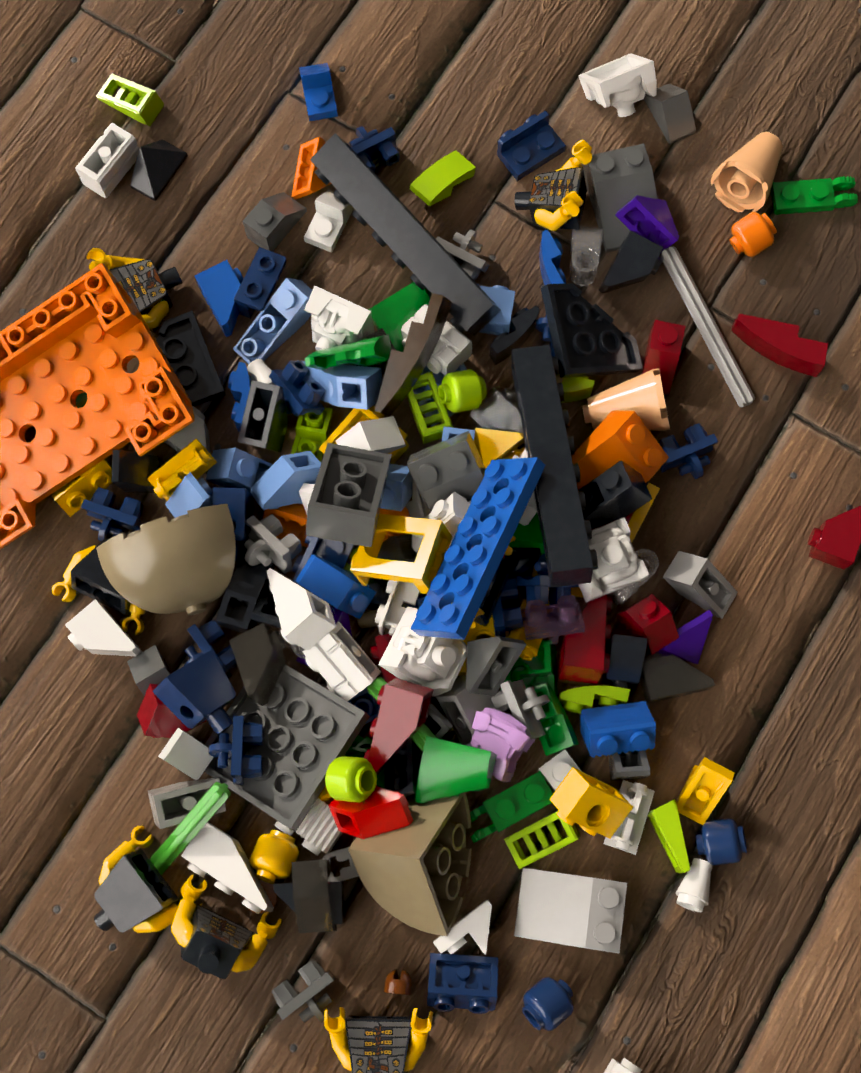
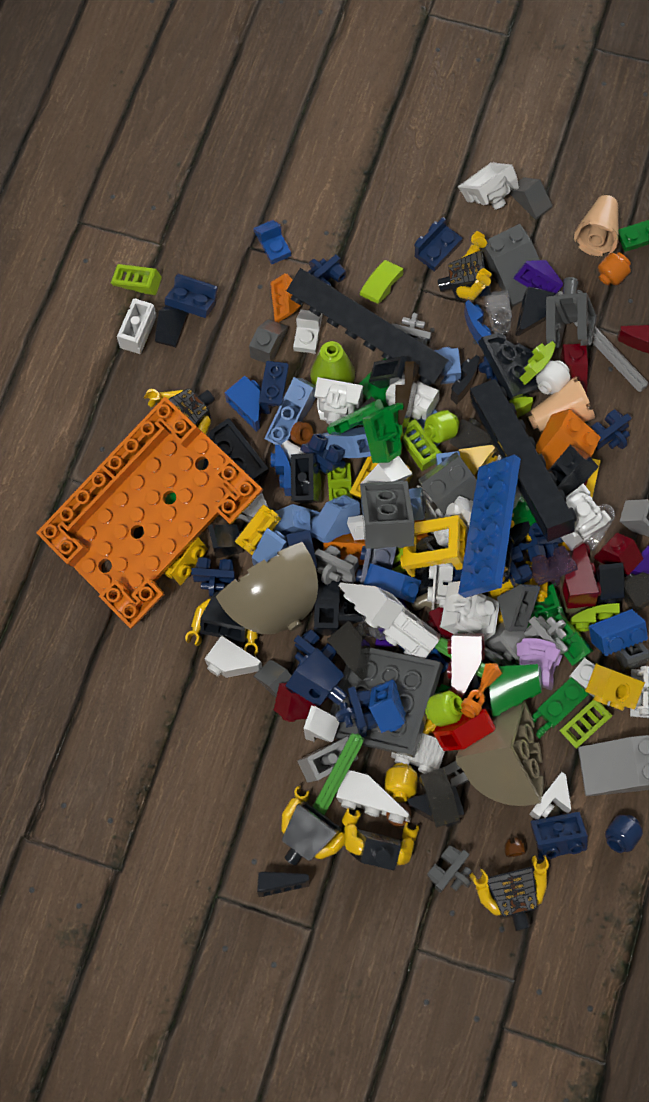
camera: 10 degrees left, 5 degrees down
(71, 949) = (274, 883): none -> black slope
(192, 138) = (192, 296): none -> dark blue bracket
(276, 754) = (387, 706): none -> blue slope
(280, 353) = (301, 432): none -> dark orange tile
(346, 274) = (332, 364): none -> lime cone
(378, 383) = (384, 433): none -> green slope
(409, 300) = (387, 371): none -> black slope
(424, 748) = (470, 707): none -> orange piece
(620, 329) = (538, 361): none -> lime slope
(628, 360) = (553, 377): none -> white head
(670, 273) = (567, 308): none -> dark grey piece

